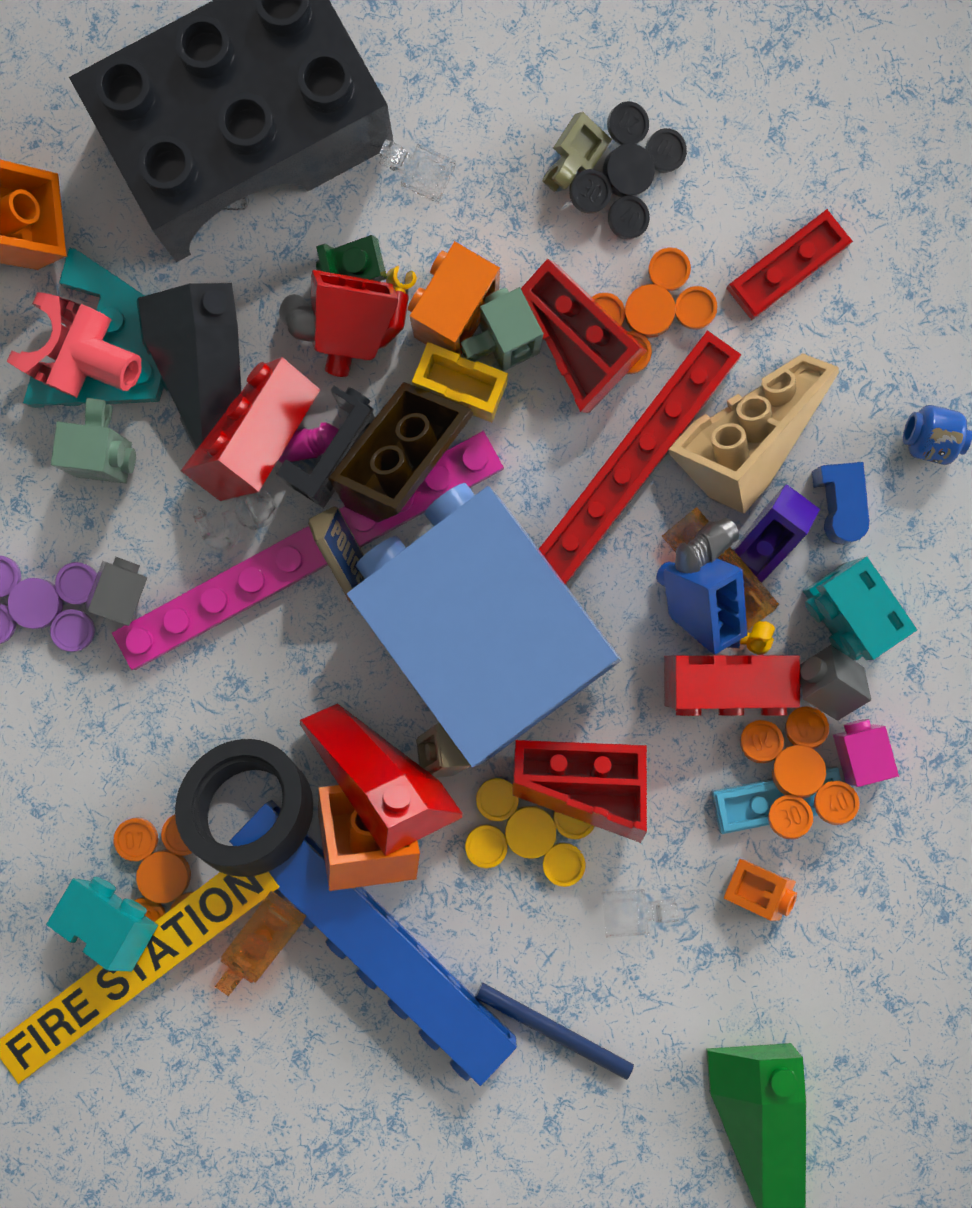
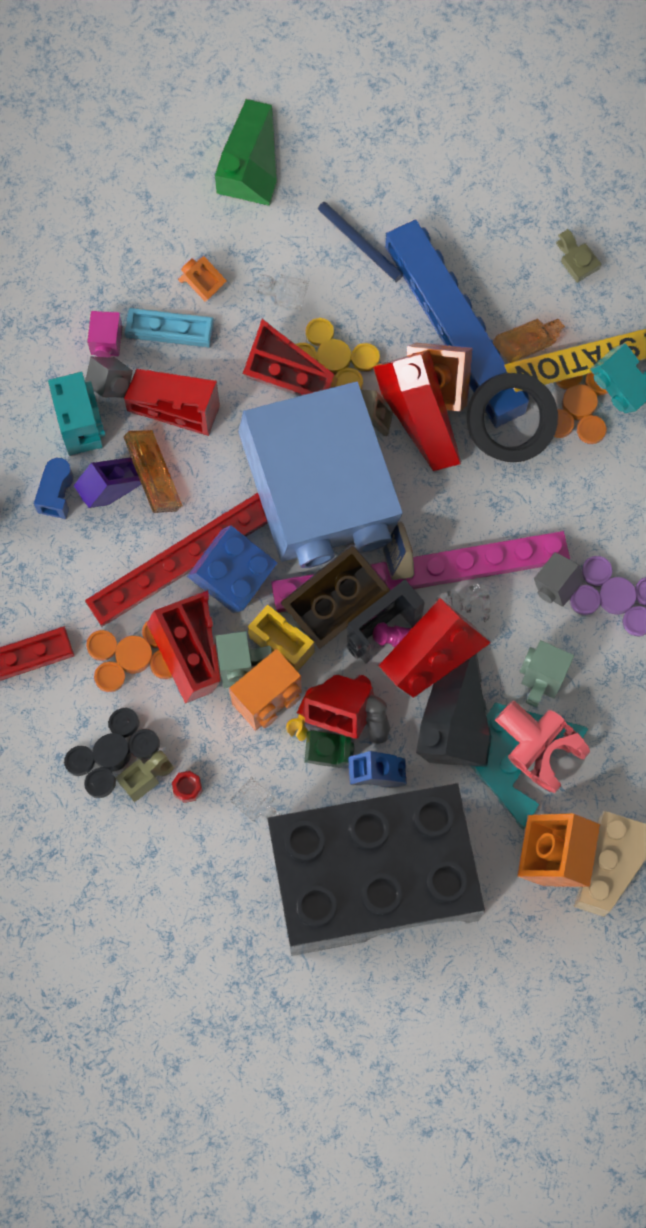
camera: 160 degrees left, 15 degrees down
(225, 1105) = (577, 260): none -> olive plate
(276, 248) = (377, 769): none -> blue leg
(516, 159) = (187, 786): none -> red tile
(559, 455) = (232, 569): none -> blue brick
(709, 595) = (169, 451): blue torso -> none
(747, 442) = (101, 547): tan wedge -> none
(799, 773) = (151, 334): orange piece -> none

